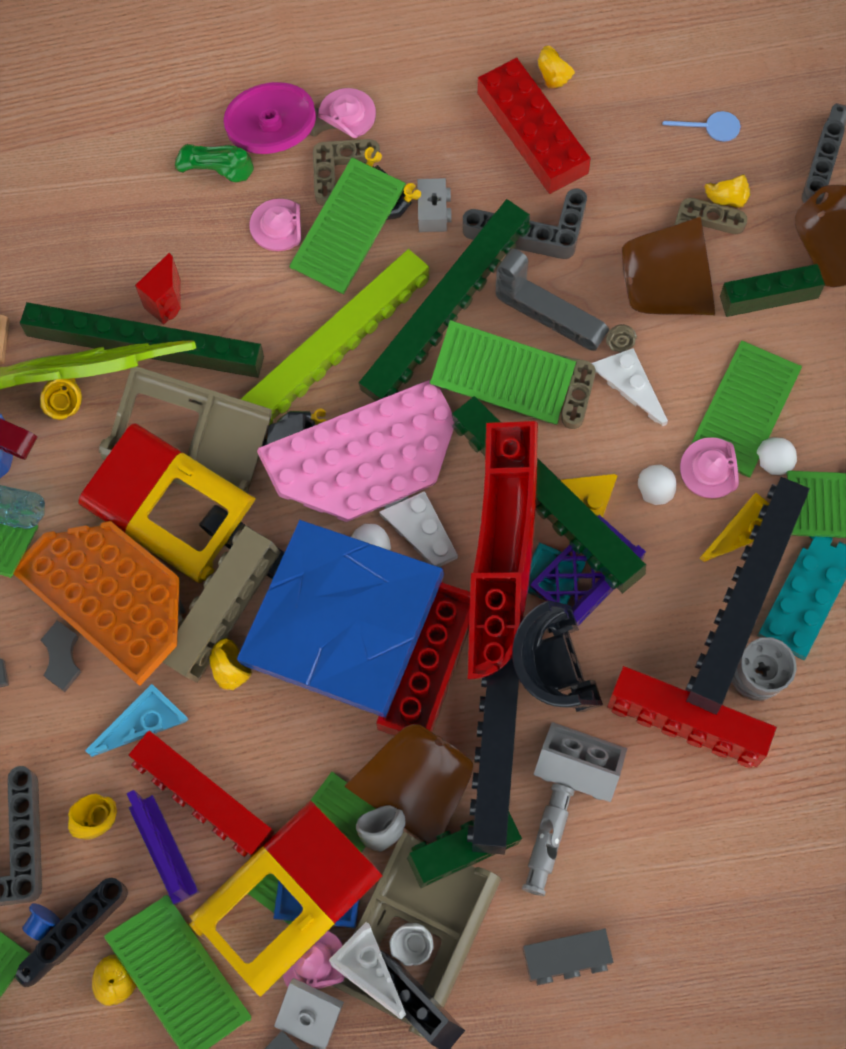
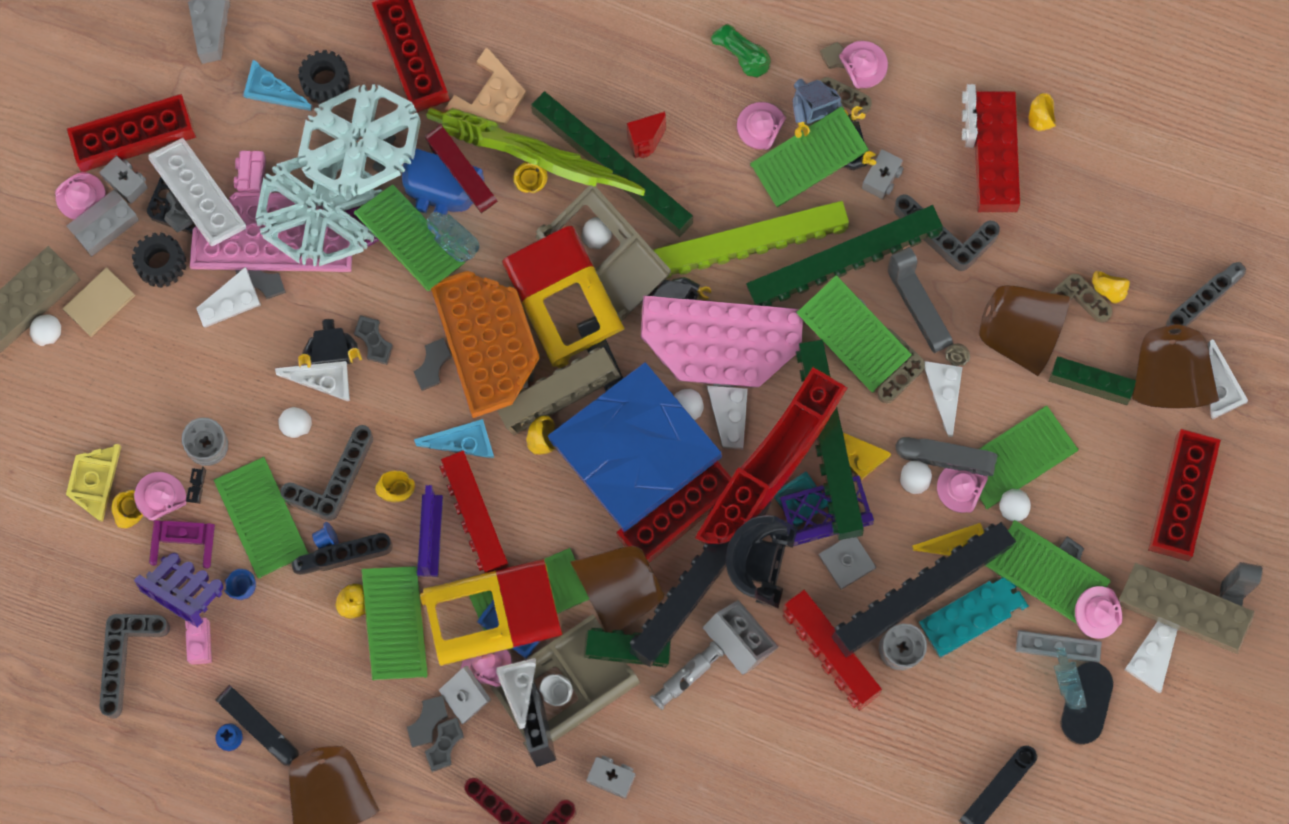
camera: 30 degrees right, 5 degrees up
(166, 419) = (595, 233): none -> white hair
(269, 118) = (801, 38): dark pink dish -> none
(320, 169) = (813, 103): none -> sand blue torso
(381, 827) = (580, 603): light grey hair -> none
(486, 106) = (970, 131): none -> white wing
(550, 1015) = (600, 779): none -> light grey brick
(568, 956) = (653, 757): dark grey brick -> none
(642, 613) = (847, 561): none -> light grey plate
(677, 443) = (947, 455): none -> dark grey piece
(720, 126) = (1142, 230): light blue piece -> none

